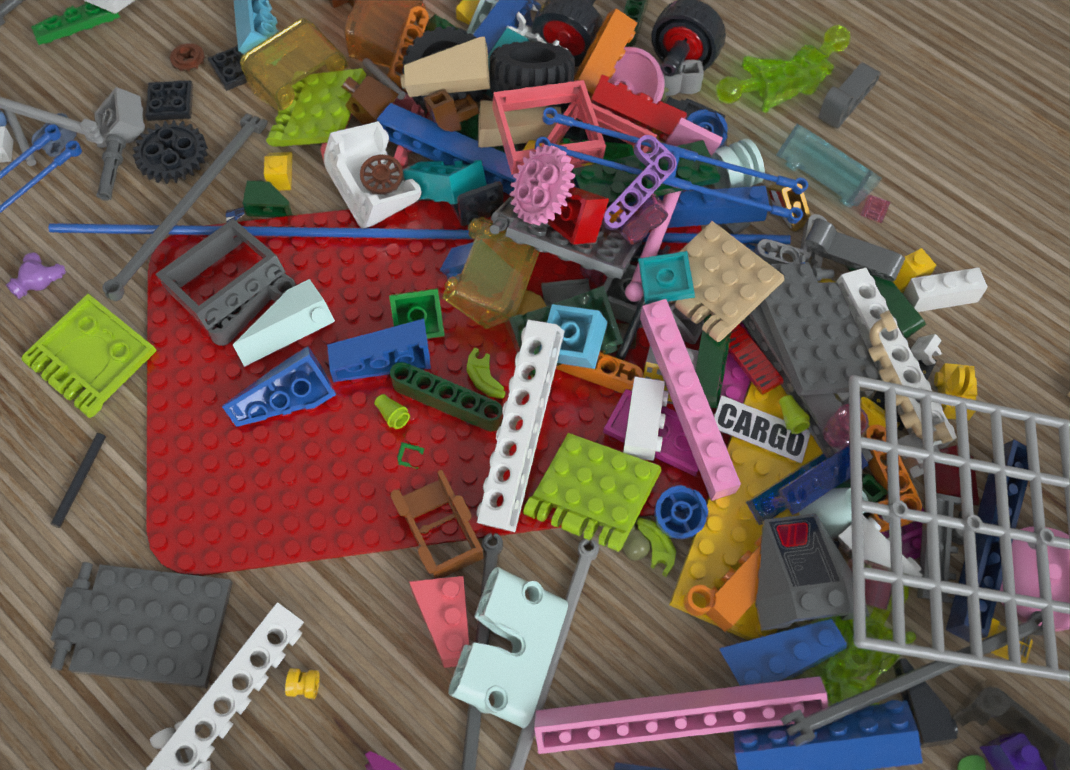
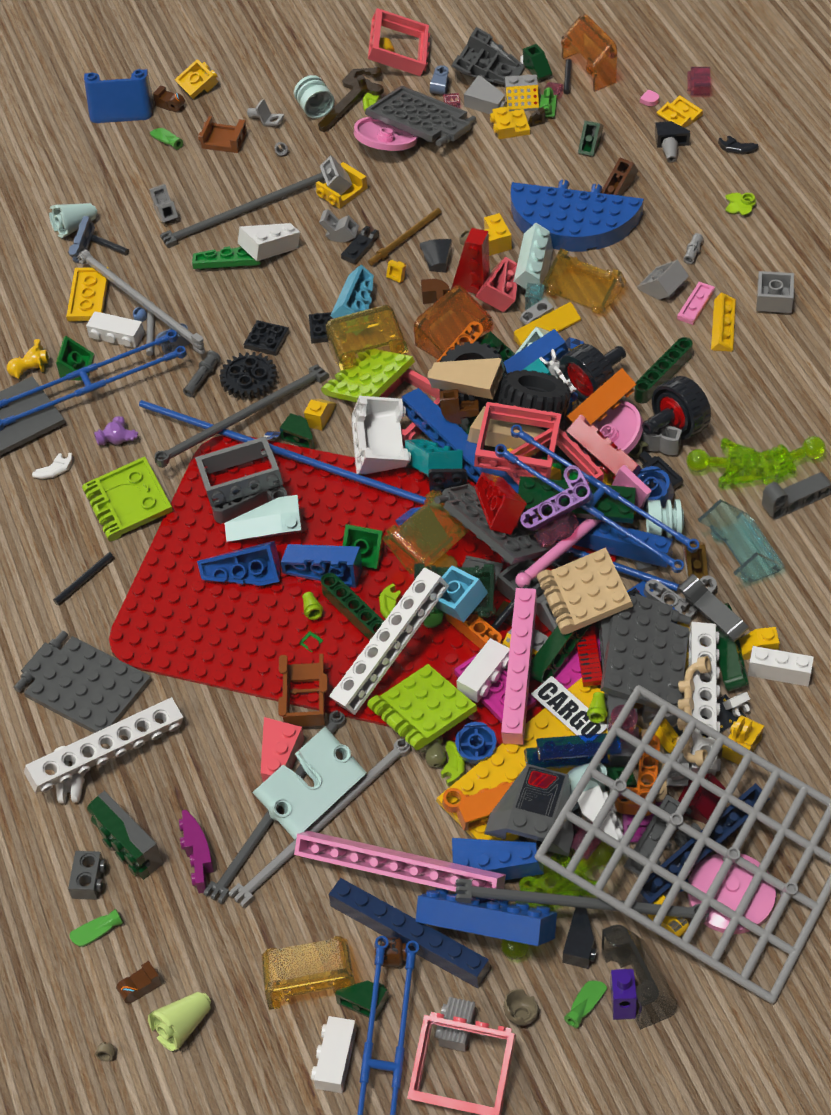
camera: 30 degrees right, 10 degrees down
(120, 116) = (225, 339): light grey slope -> none
(185, 51) = (294, 304): copper gear -> none
(302, 683) = (165, 756): yellow wheel -> none
(368, 98) = (404, 379): reddish brown torso -> none
(381, 174) = (388, 438): copper wheel -> none
(383, 78) = (427, 362): light grey bar -> none
(542, 185) = (484, 478): bright pink gear -> none
(666, 277) = (548, 575): teal tile -> none
(875, 208) = (766, 589): clear pink tile -> none

